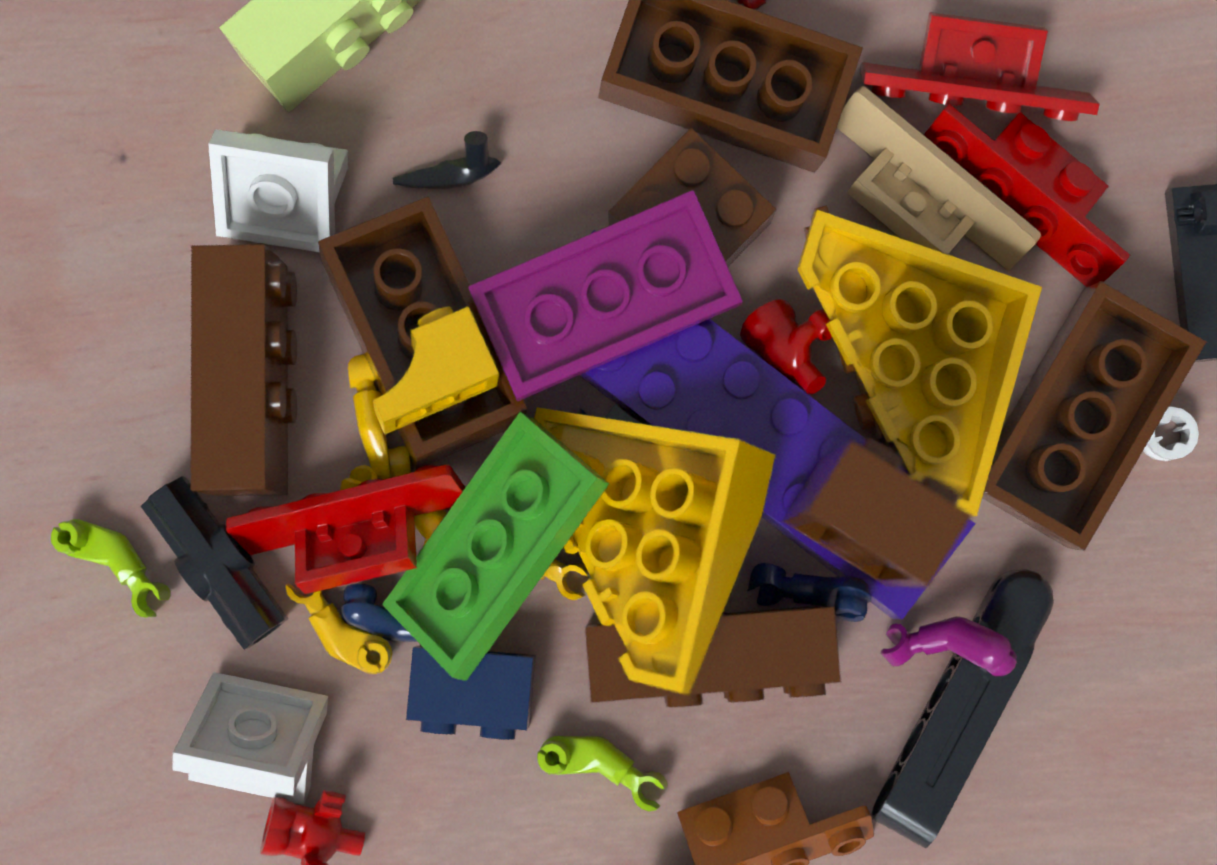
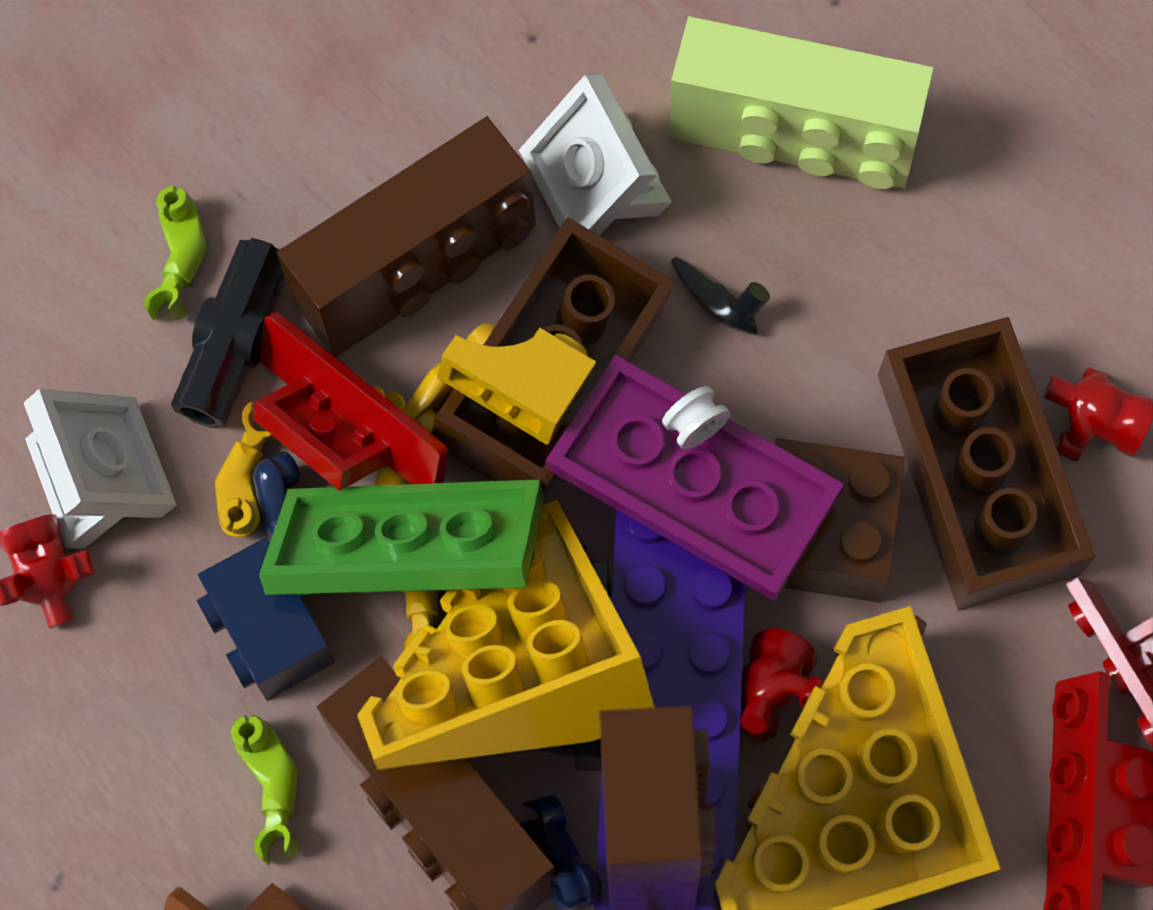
camera: 55 degrees right, 15 degrees down
(570, 263) = (696, 417): none -> white bush
(924, 191) = (1011, 714): tan bracket -> none

